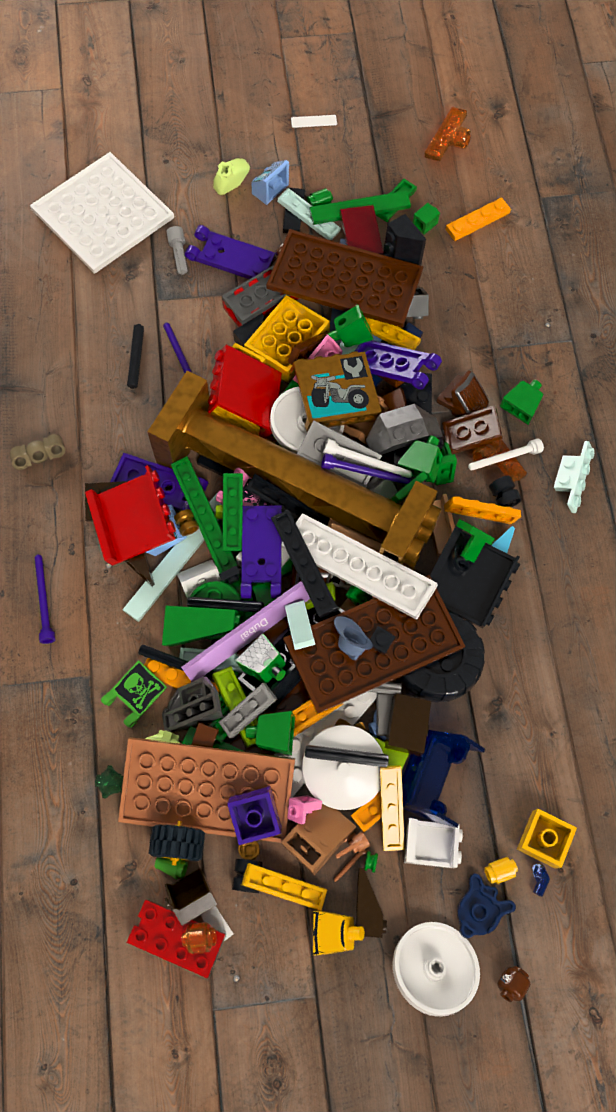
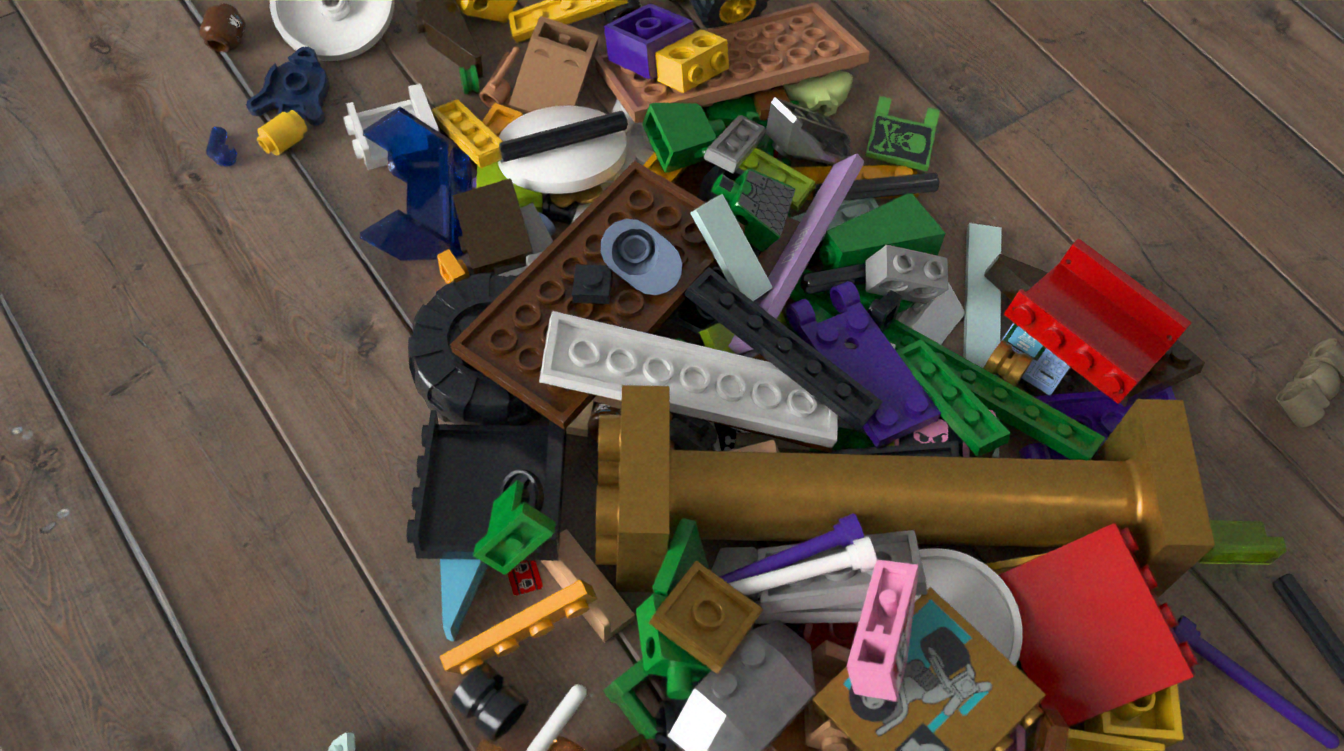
camera: 150 degrees right, 10 degrees down
(46, 634) = (1072, 156): dark purple piece -> none
(109, 782) = (861, 28): clear green rock -> none
(139, 409) = (1243, 544): none -> clear neon green panel
(208, 584) = (907, 272): none -> light grey brick
(241, 786) = (692, 60): none -> yellow brick
(300, 806) = (592, 86): bright pink bracket -> none
(343, 410) = (884, 631): none -> bright pink slope
(410, 455) = (706, 616): none -> pearl gold tile
(436, 719) = (451, 268): none -> light orange plate
(546, 838) = (224, 183): yellow brick -> none

